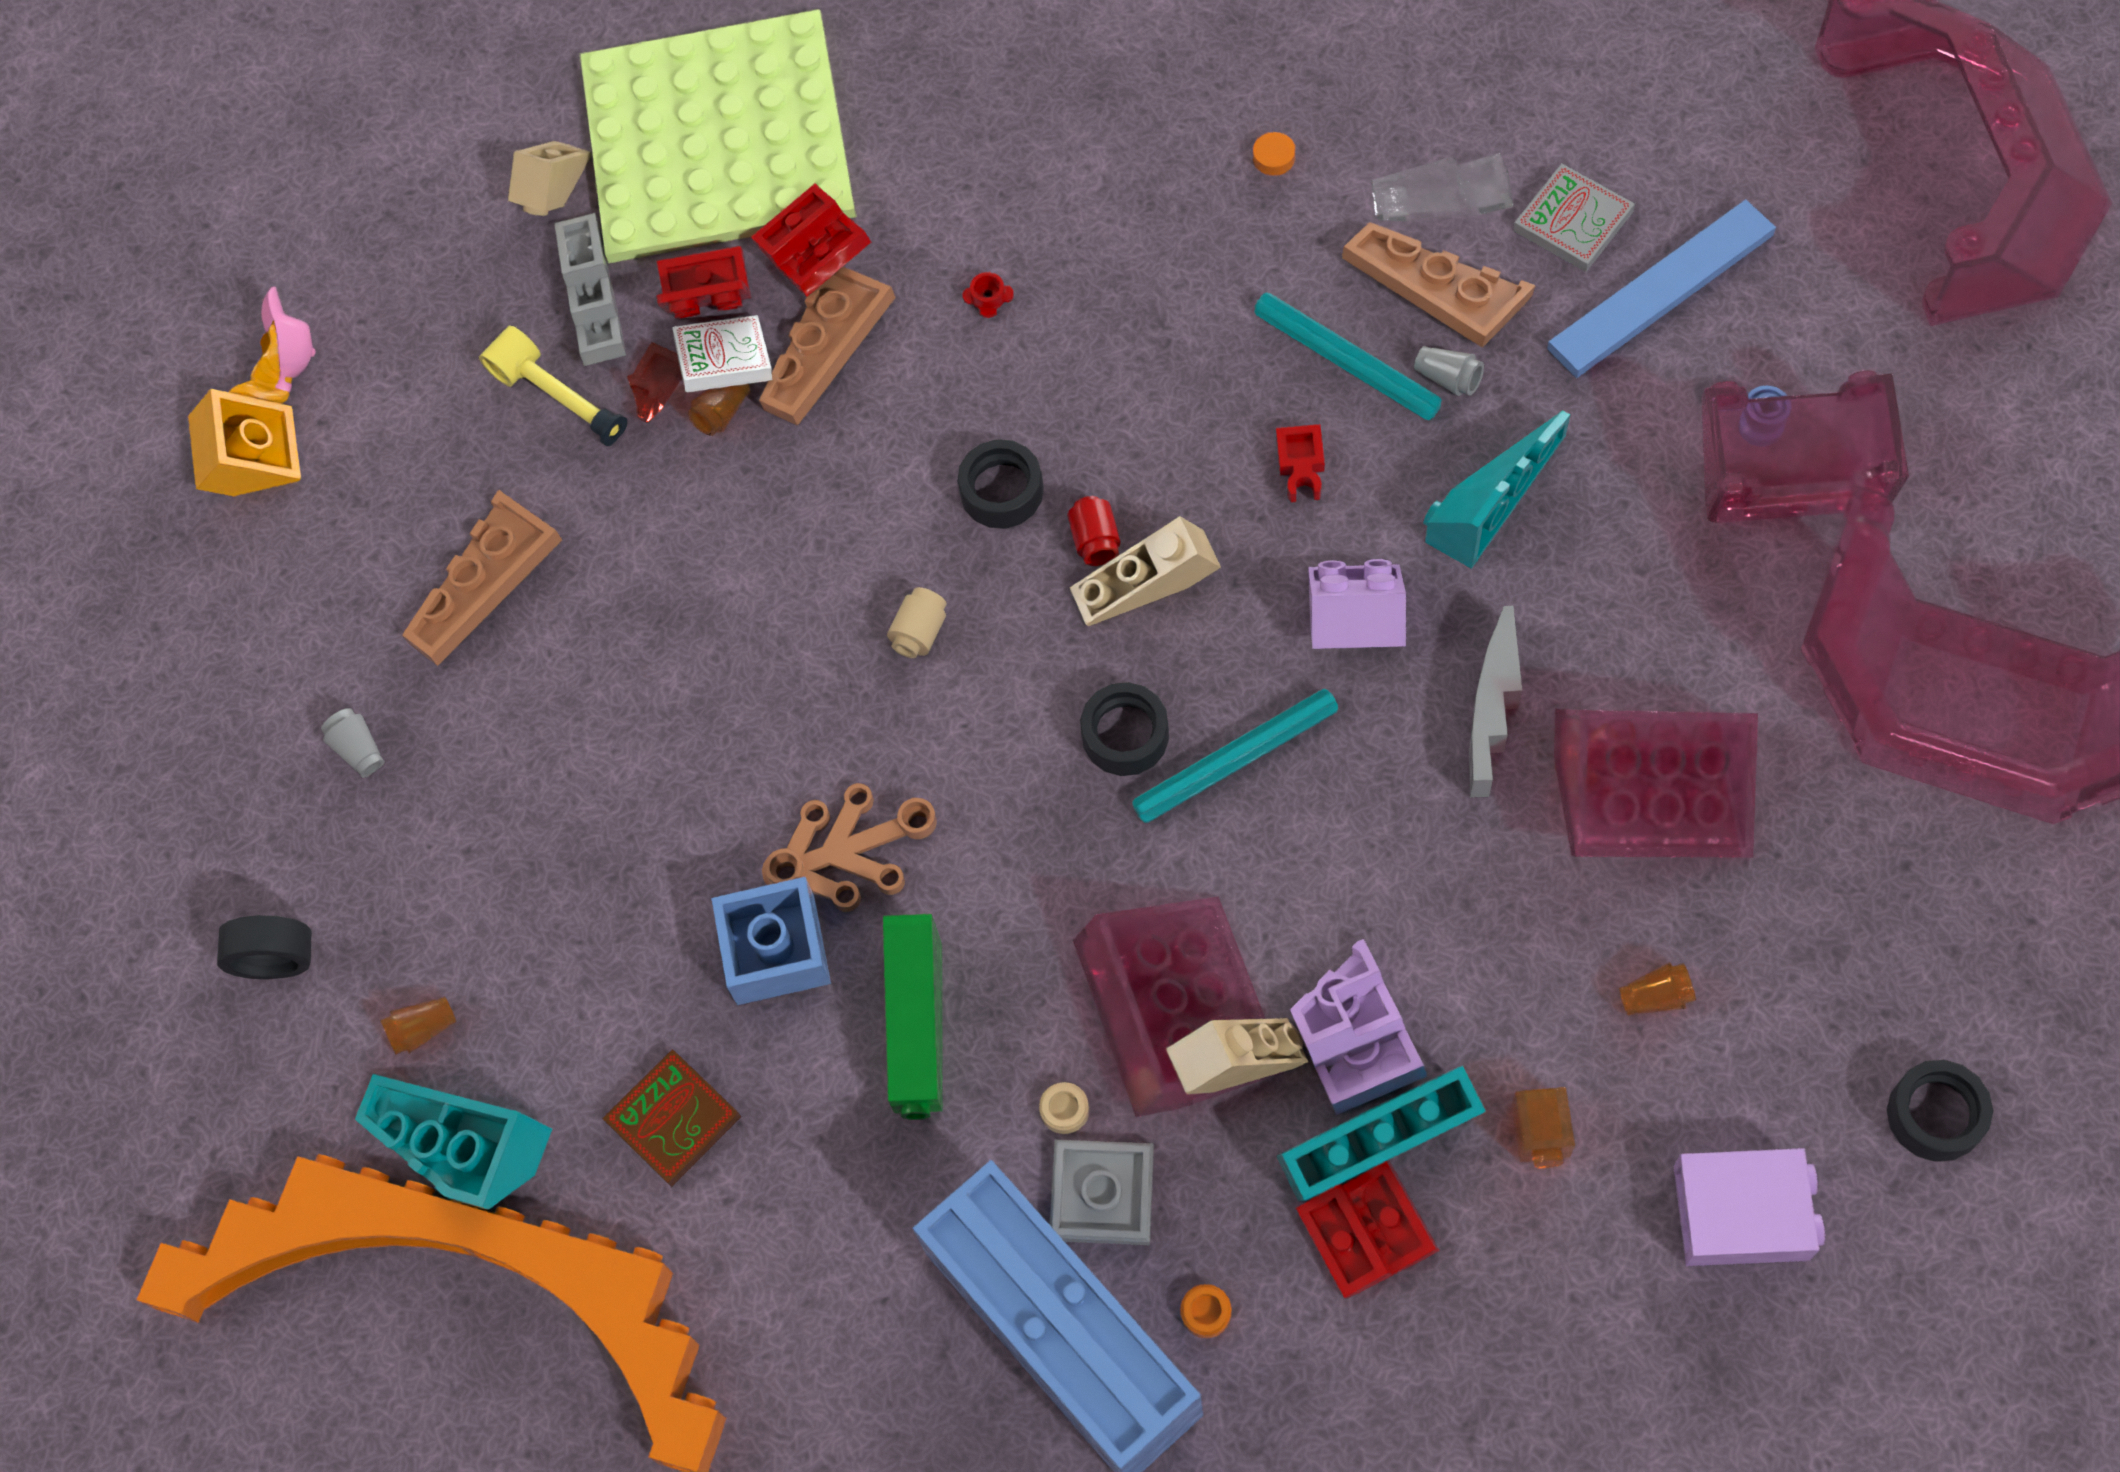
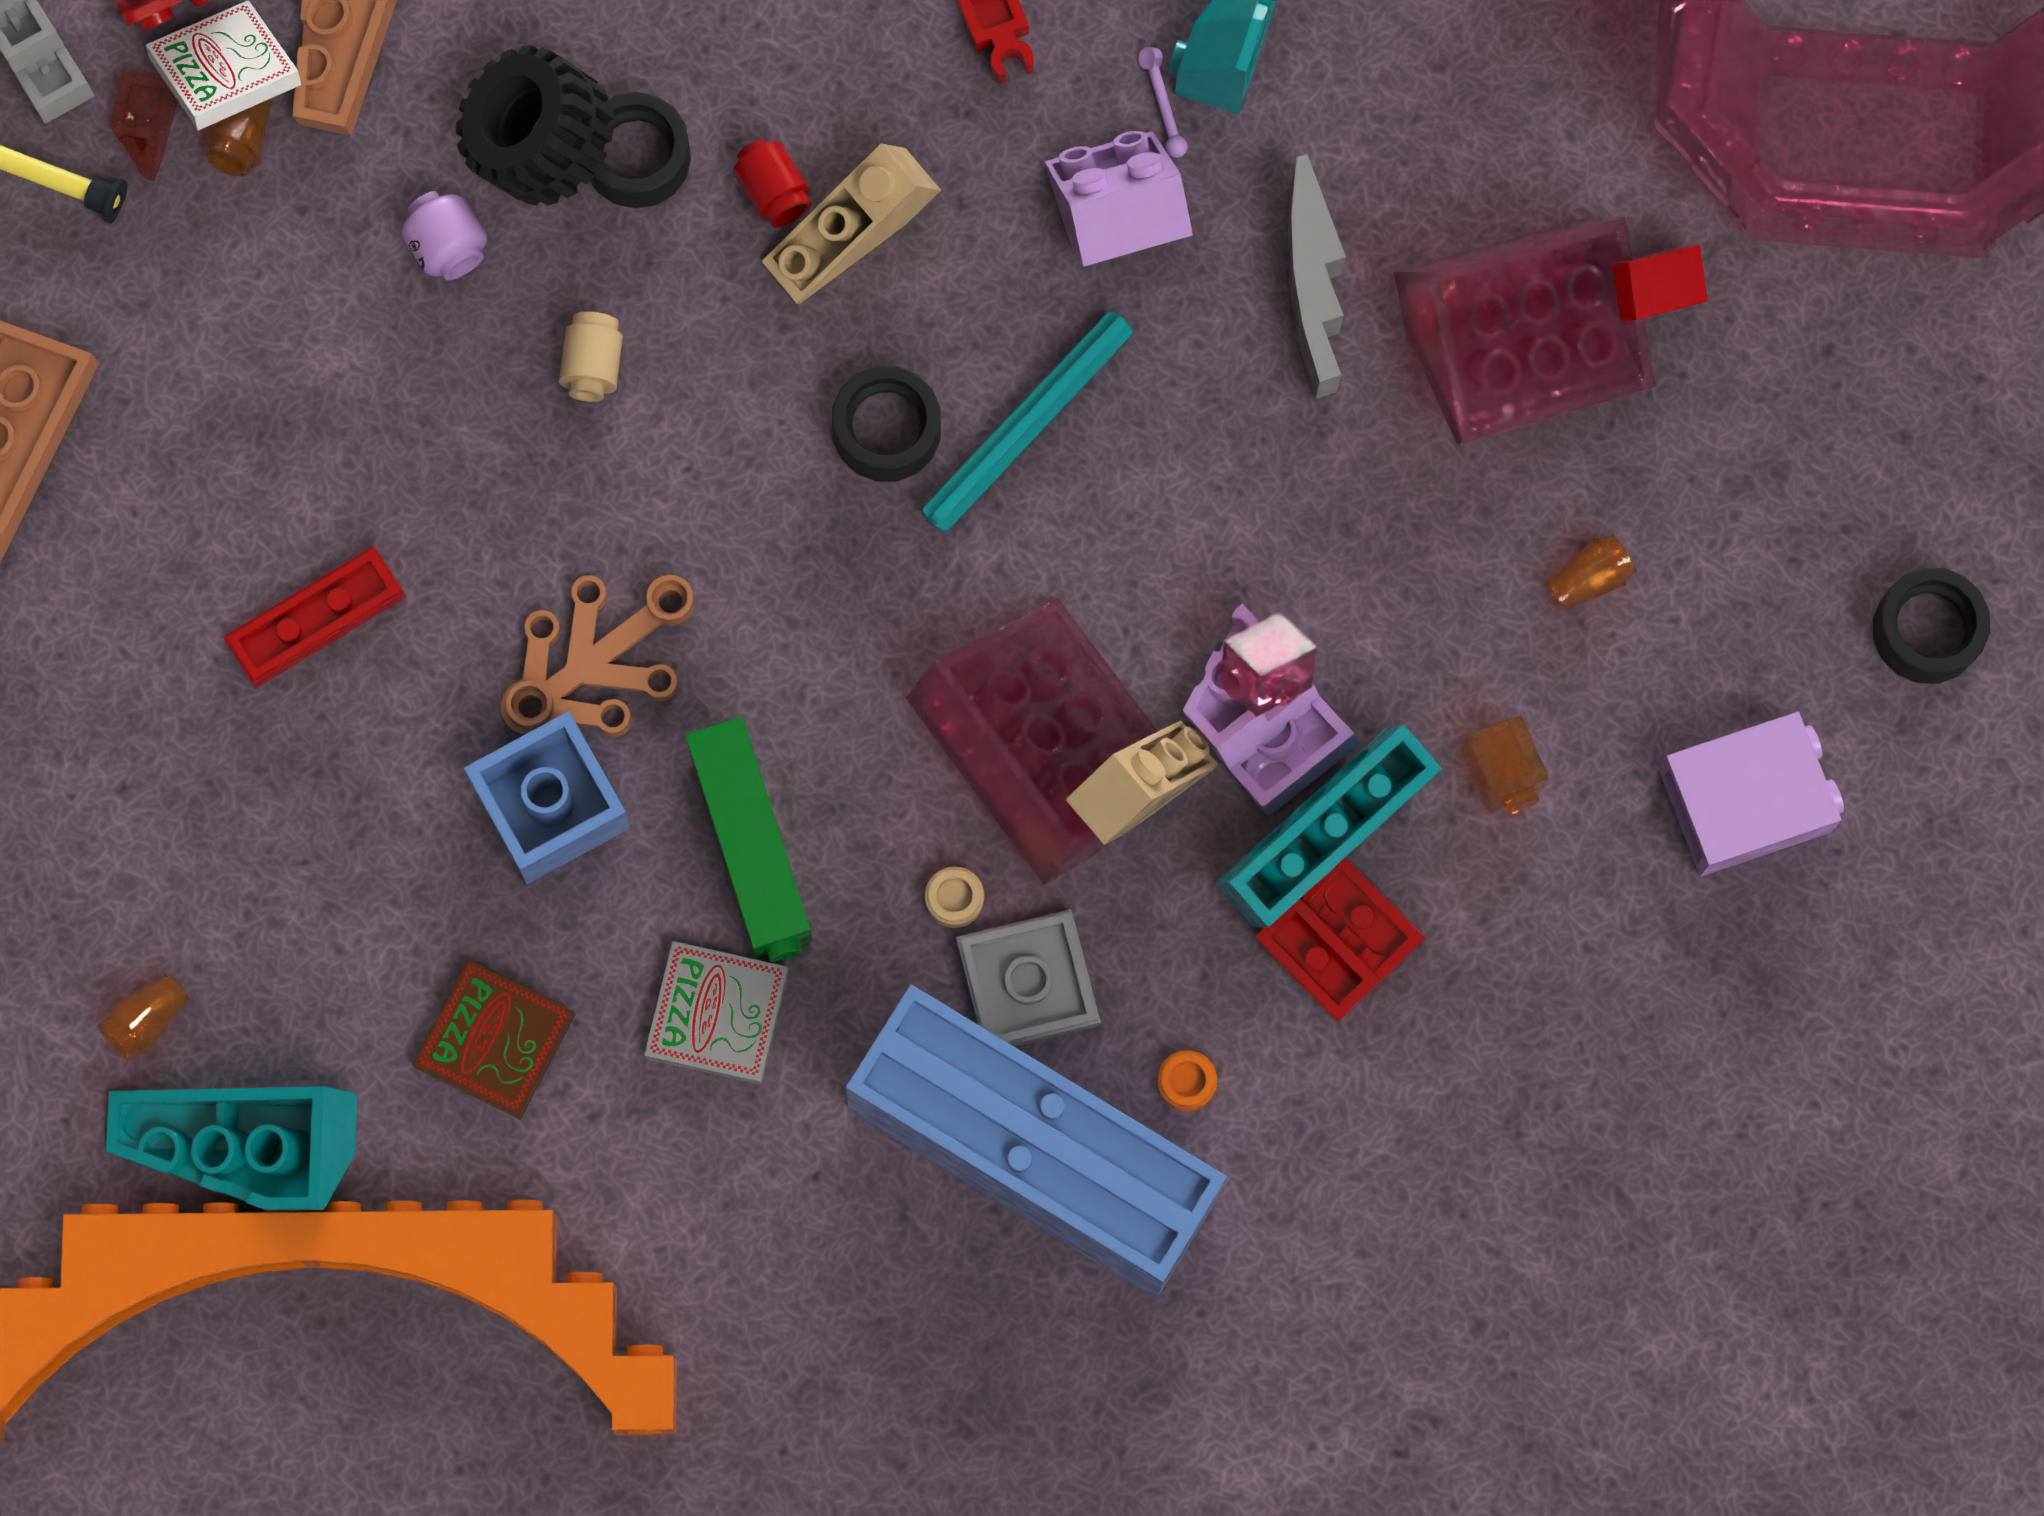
camera: 30 degrees left, 10 degrees up
(650, 762) = (314, 617): none -> red tile
(838, 510) = (444, 235): none -> lavender head
(848, 1146) = (716, 1012): none -> light grey tile
(927, 444) = (562, 144): none -> black tyre
(1366, 989) = (1267, 664): none -> clear pink brick
(1413, 512) = (1151, 59): none -> lavender hinge
(1775, 774) = (1660, 283): none -> red tile

